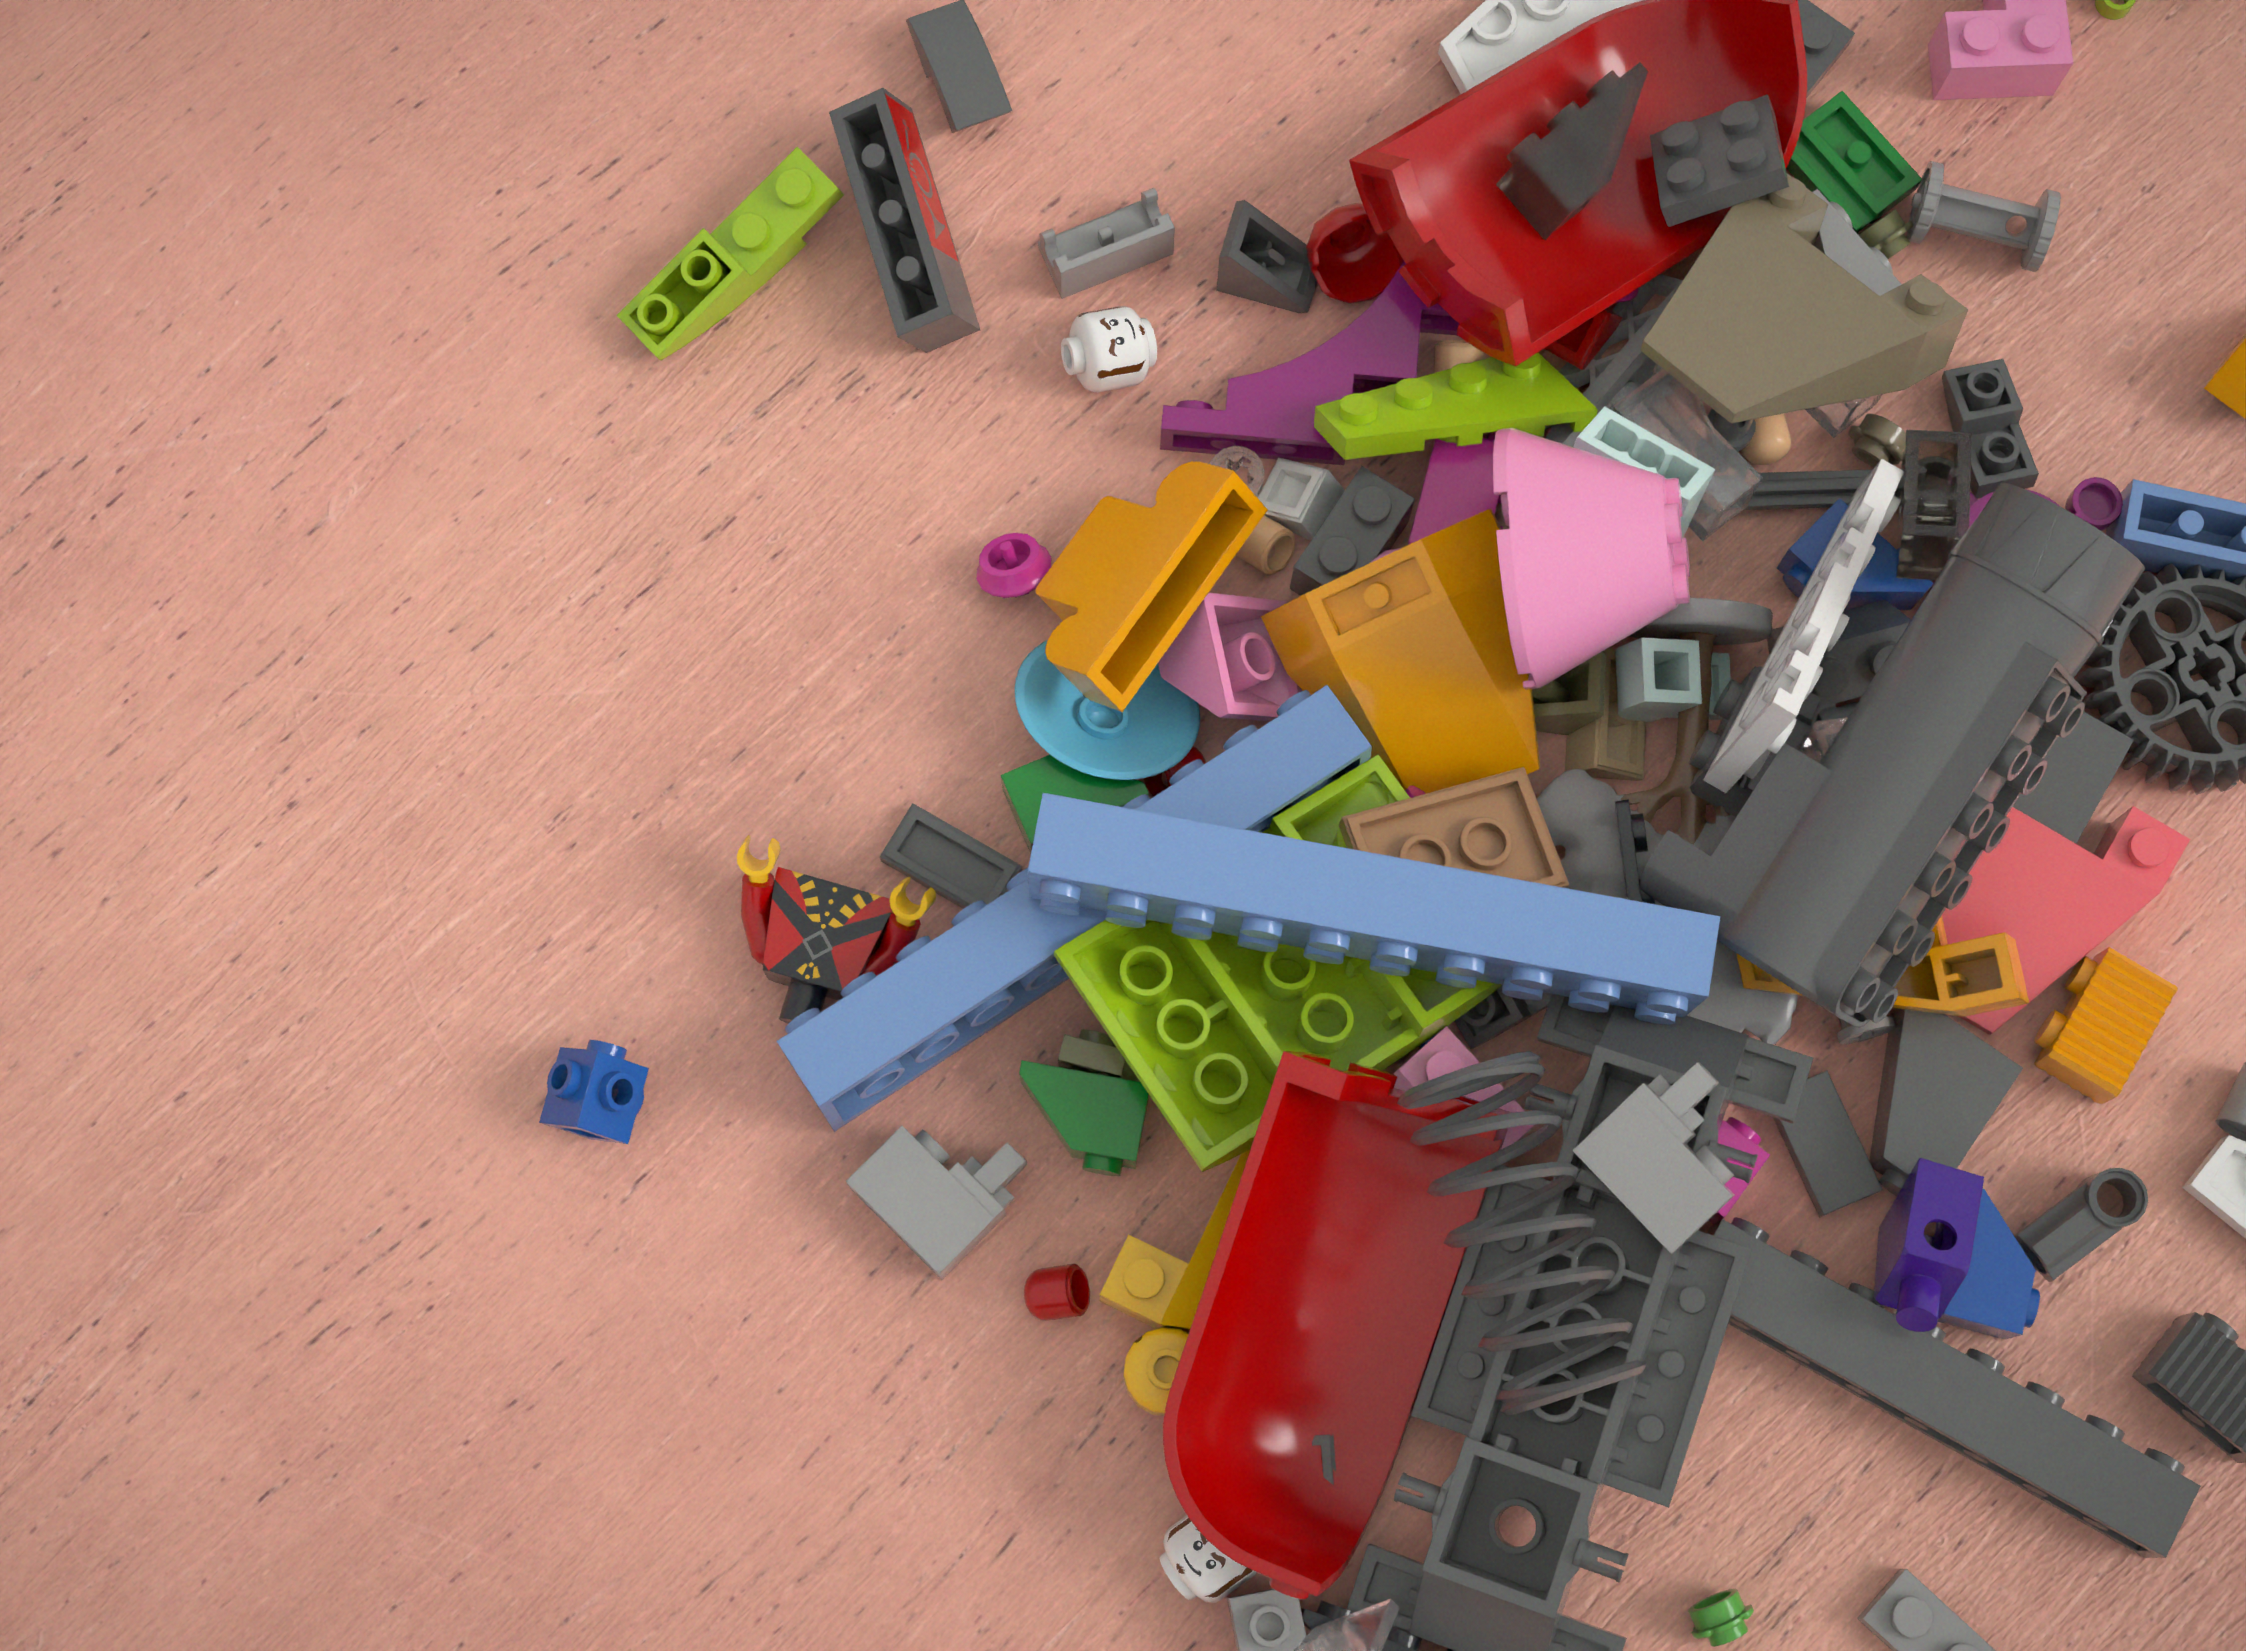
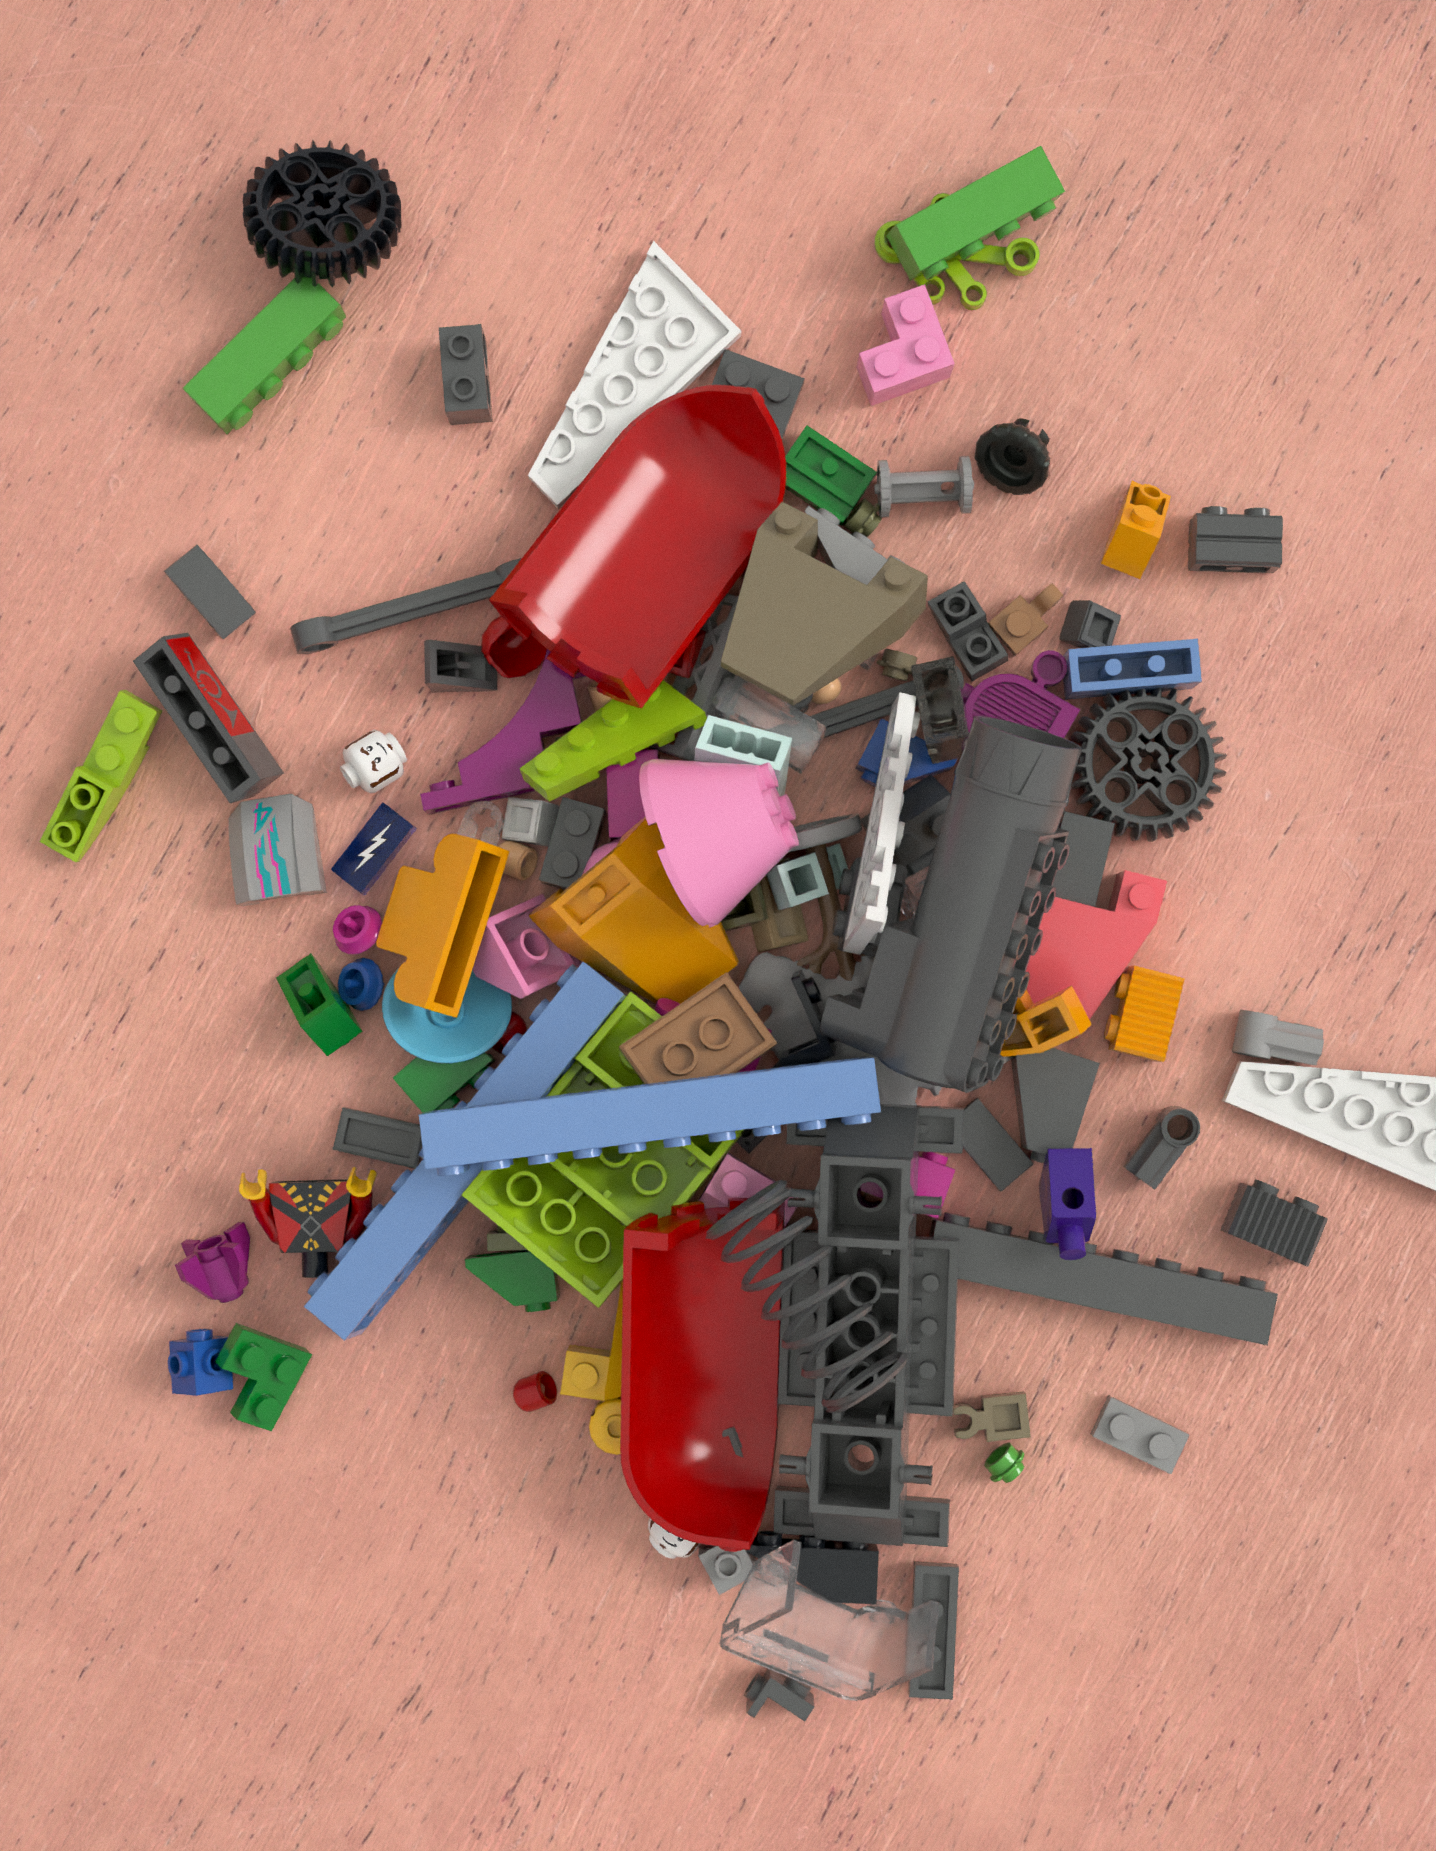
camera: 15 degrees left, 10 degrees up
(665, 962) = (217, 1264): none -> magenta brick
(693, 1137) = (271, 1370): none -> green plate
(927, 652) = (318, 1005): none -> green slope
(932, 1208) = (435, 1364): light grey hinge -> none
(933, 429) = (274, 850): none -> light grey slope
(994, 641) = (361, 984): none -> blue hat
(1071, 469) = (373, 849): none -> clear blue slope
(1092, 163) = (326, 631): none -> dark grey piece
(1108, 245) = (348, 687): light grey hinge -> none
(1577, 158) = (642, 541): clear smoke slope -> none
(1647, 1159) = (876, 1228): light grey hinge -> none
(1718, 160) = (736, 509): dark grey plate -> none
(1732, 1544) = (1001, 1416): none -> dark tan plate
(1999, 1282) = (1117, 1200): blue slope -> none
(2071, 439) = (1022, 622): none -> medium nougat plate
(2106, 223) = (1013, 457): none -> pearl dark grey hair
(2165, 462) = (1089, 625): none -> dark grey slope

